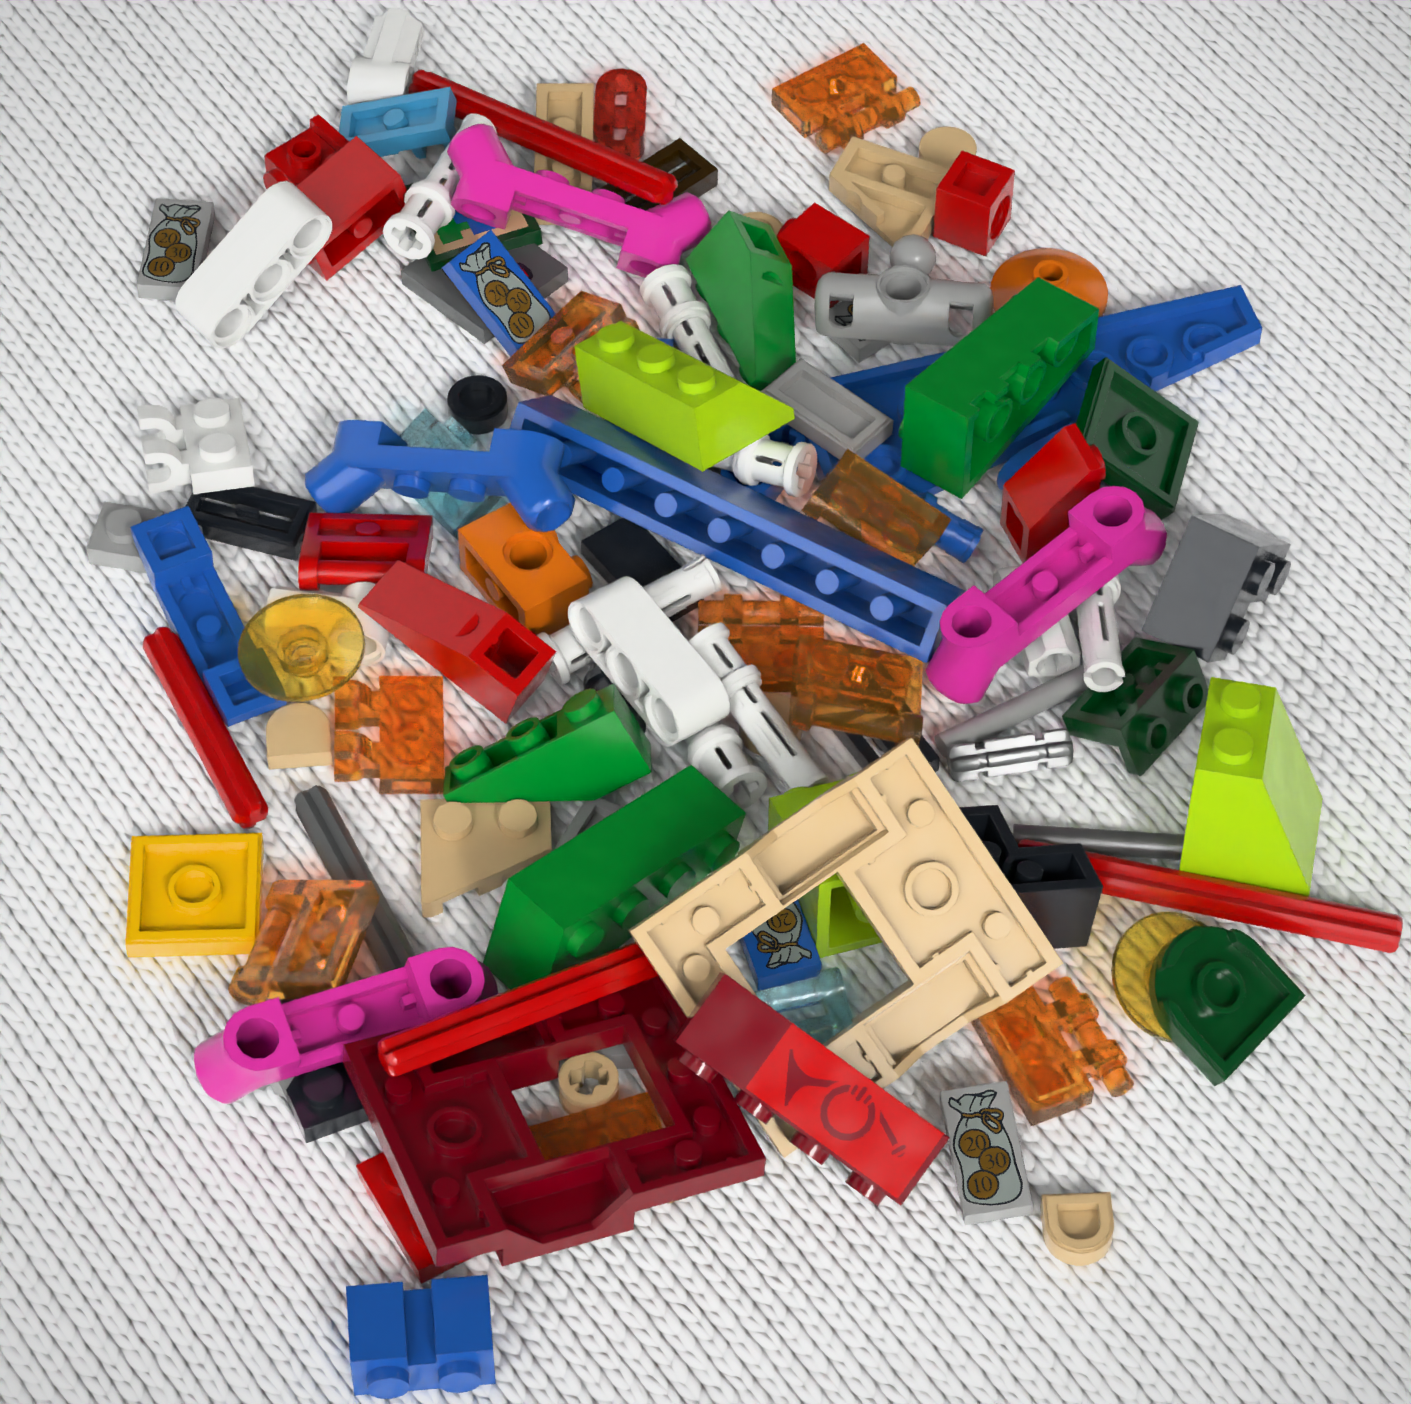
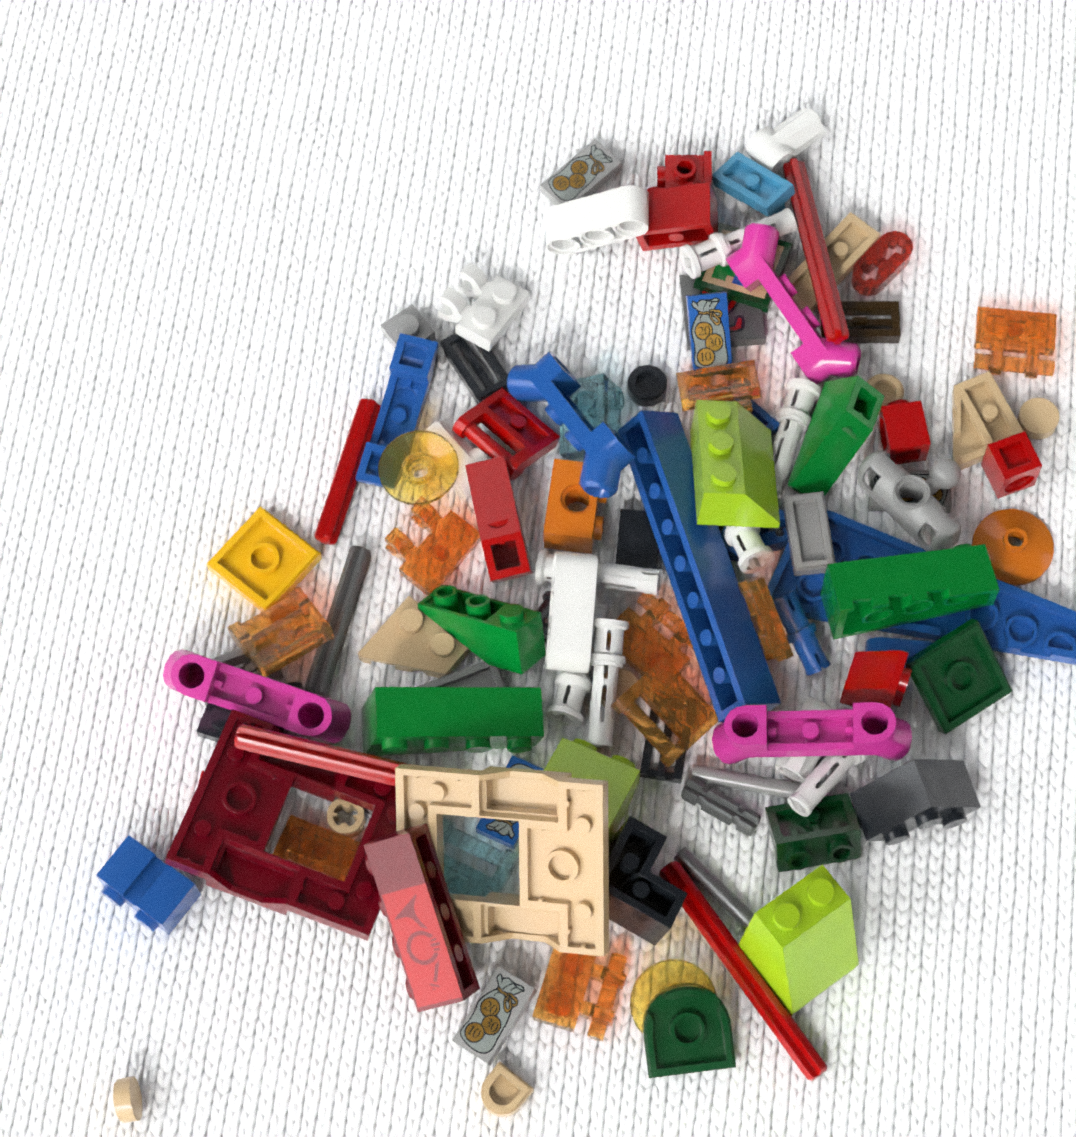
camera: 45 degrees right, 15 degrees up
(298, 737) = (385, 512): tan tile -> none

